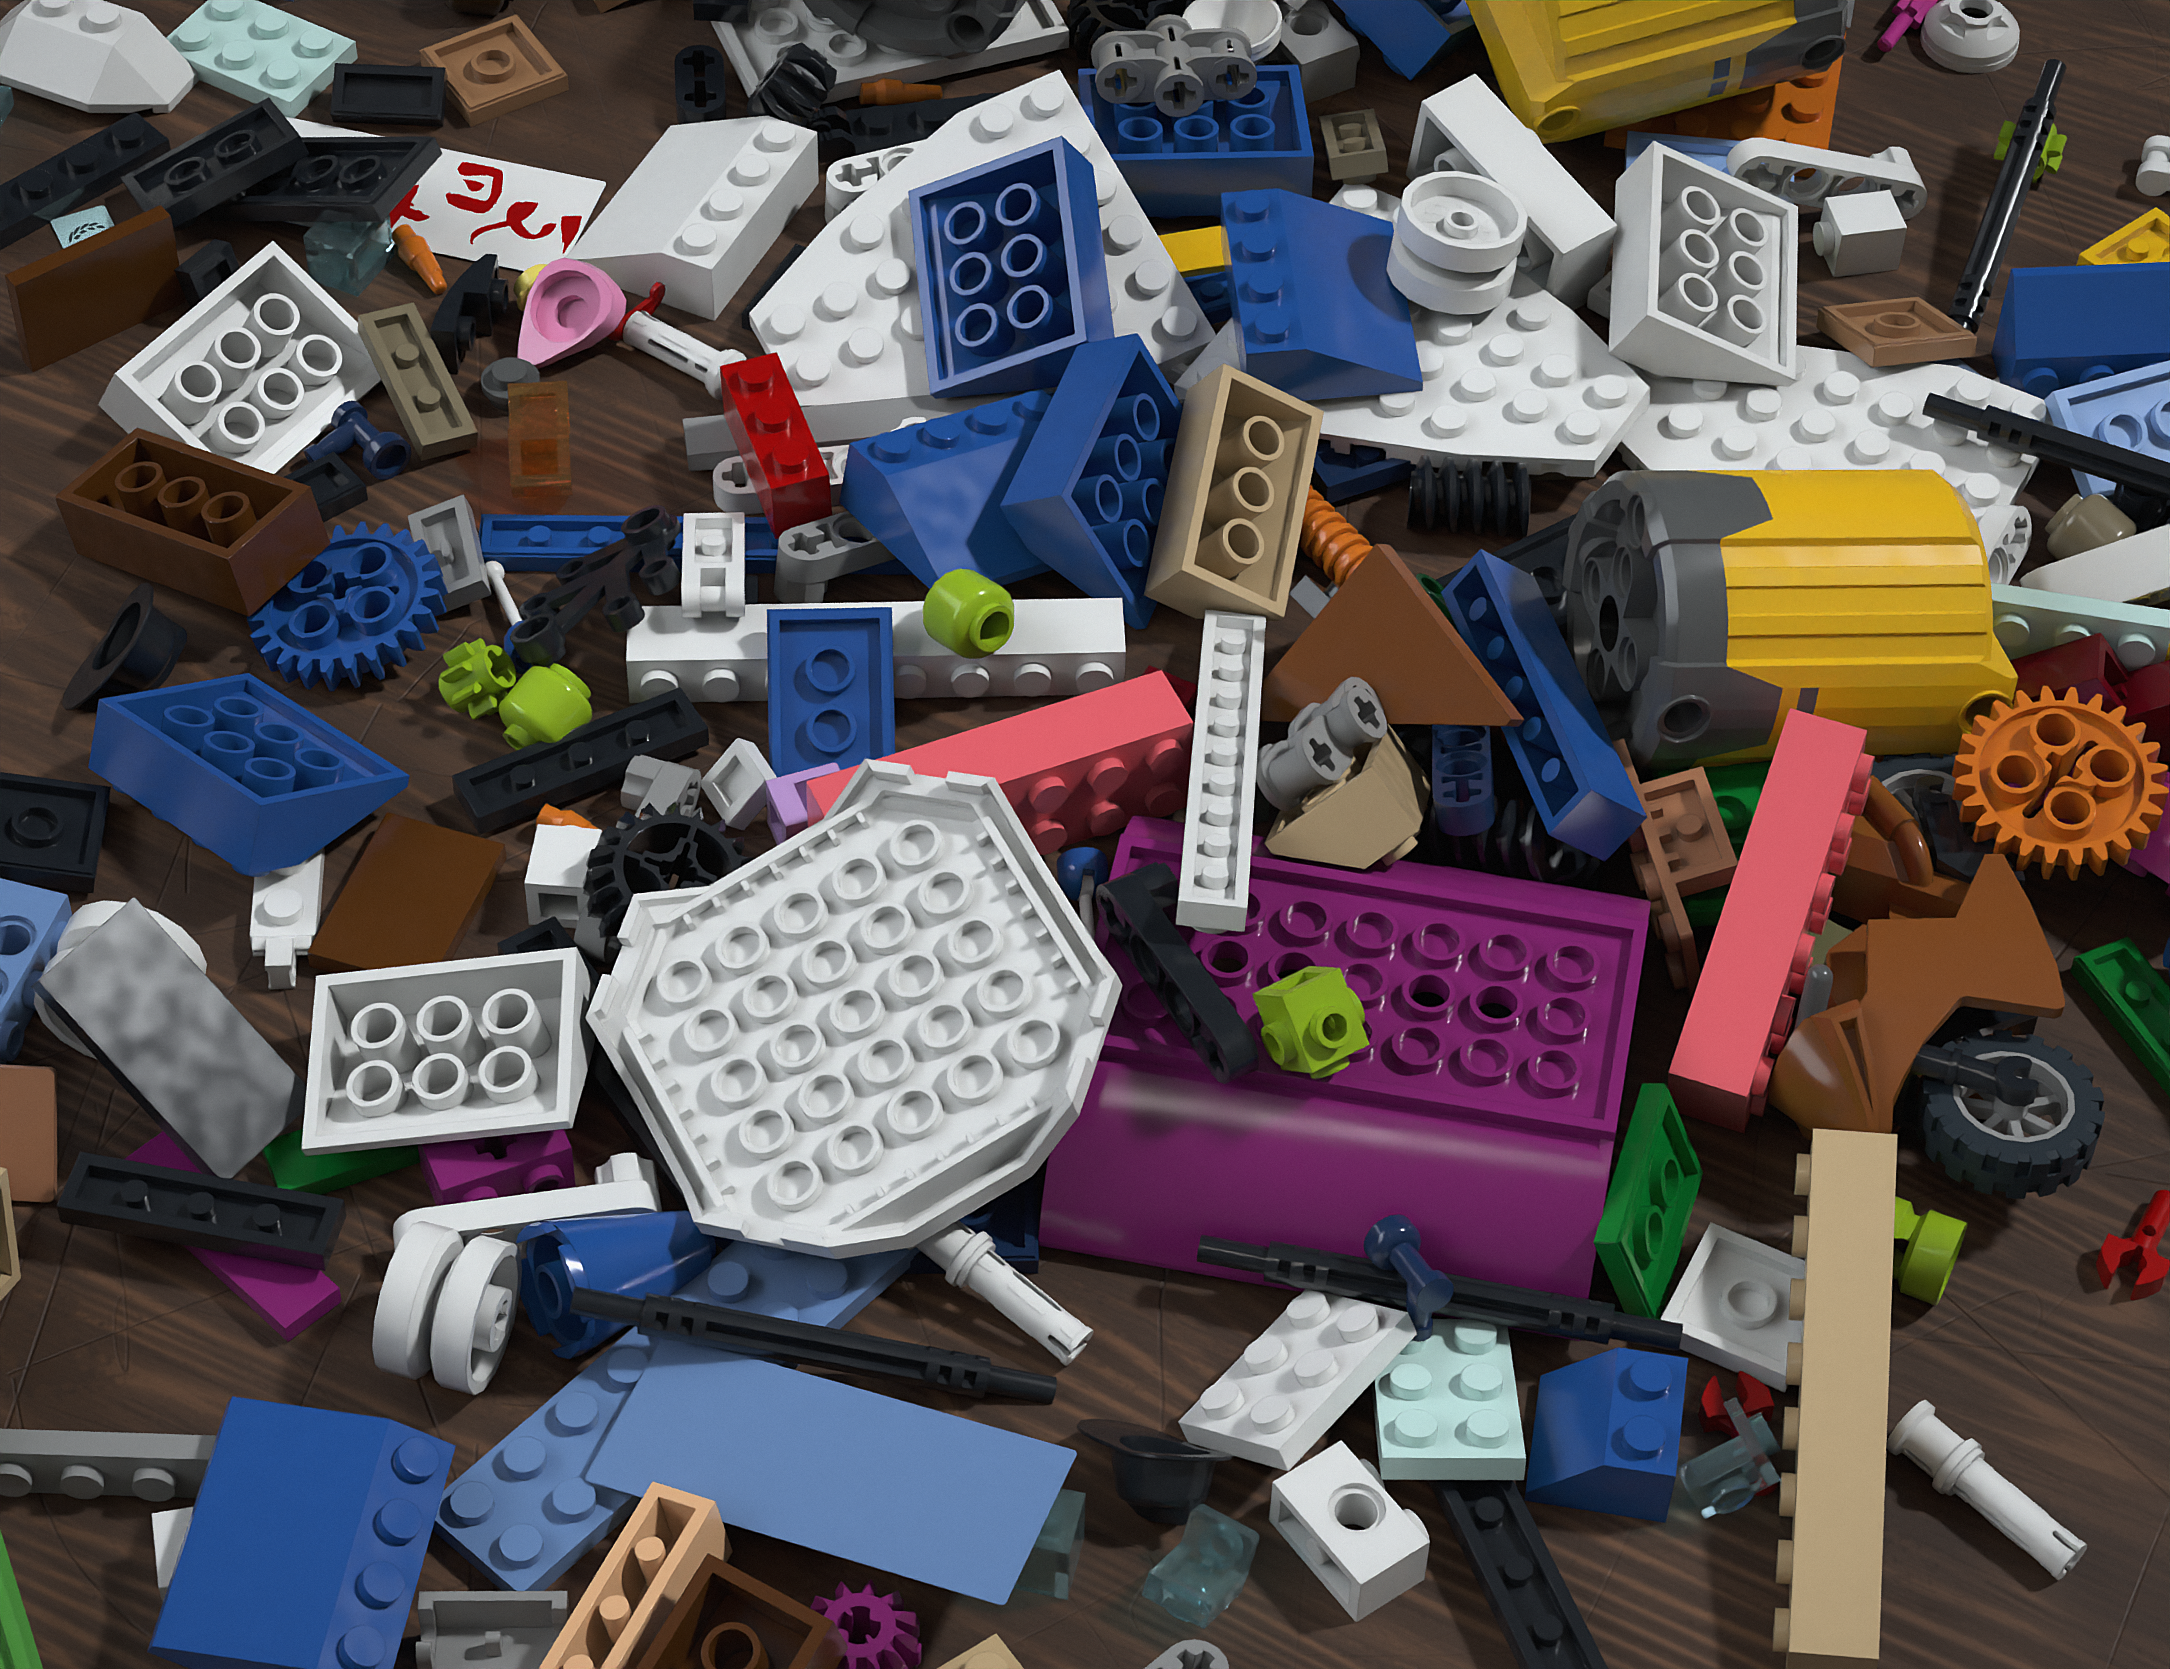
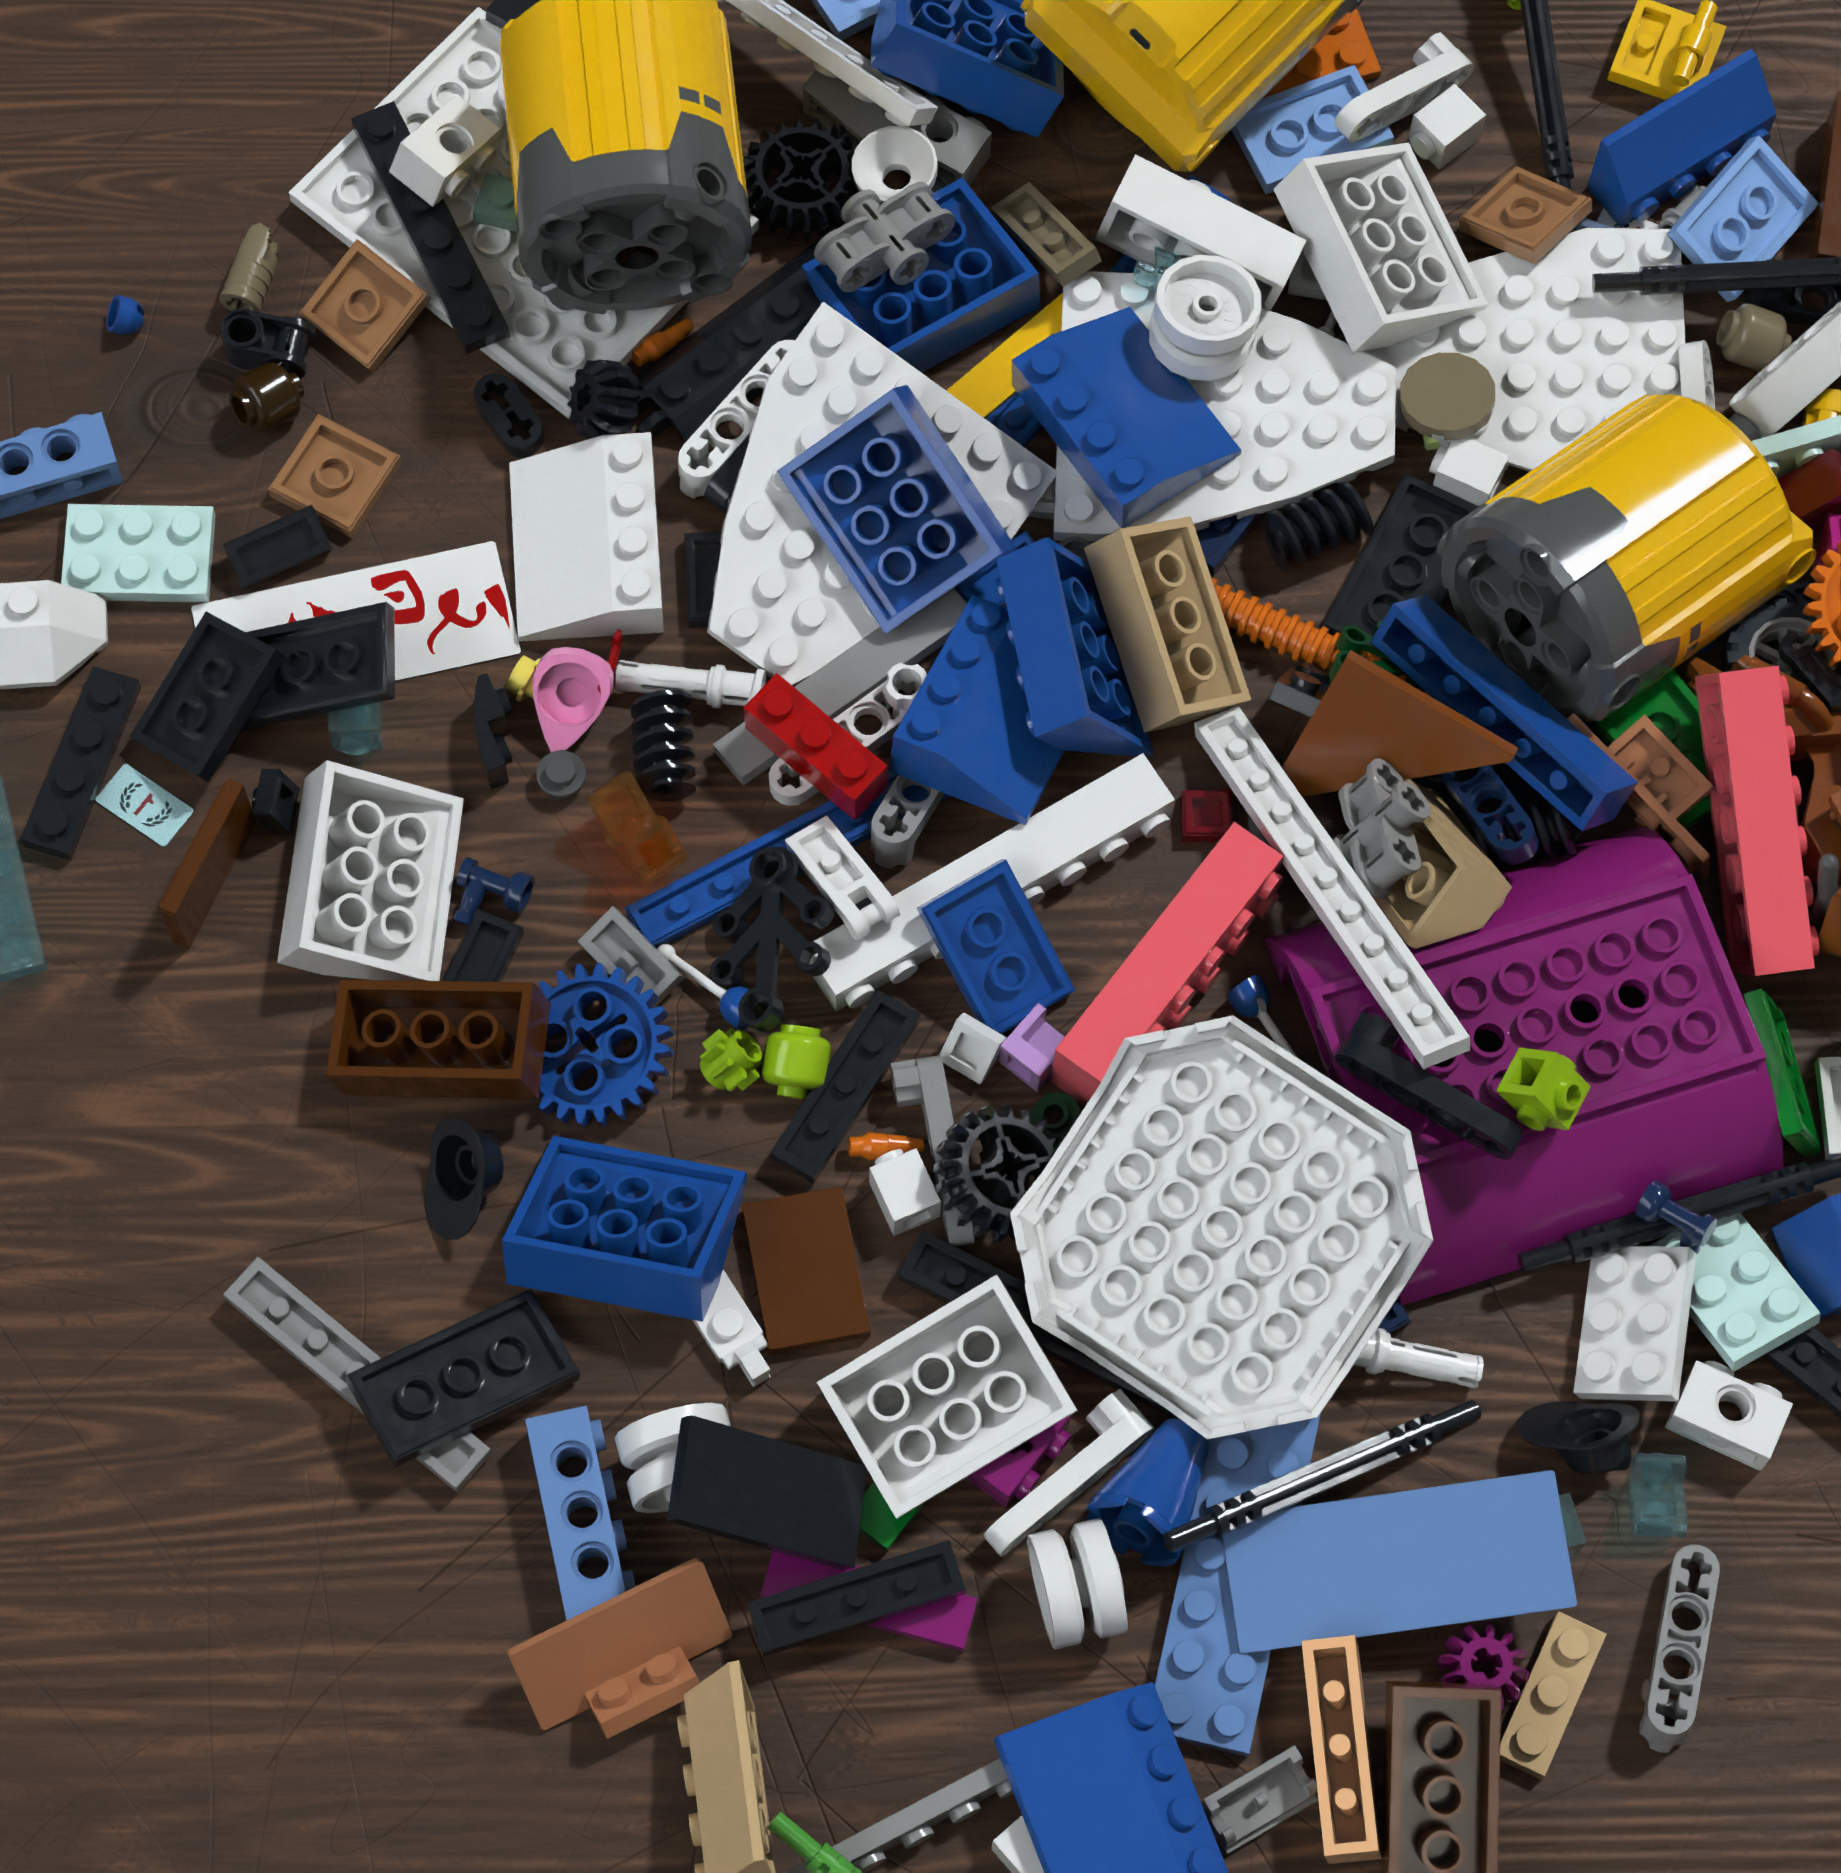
camera: 30 degrees left, 20 degrees up
(417, 381) = (499, 815): dark tan plate -> none
(418, 257) = (411, 692): orange piece -> none
(629, 392) = (660, 745): none -> black piece
(968, 614) = (1060, 835): lime head -> none
(1690, 432) = (1447, 396): none -> dark tan tile

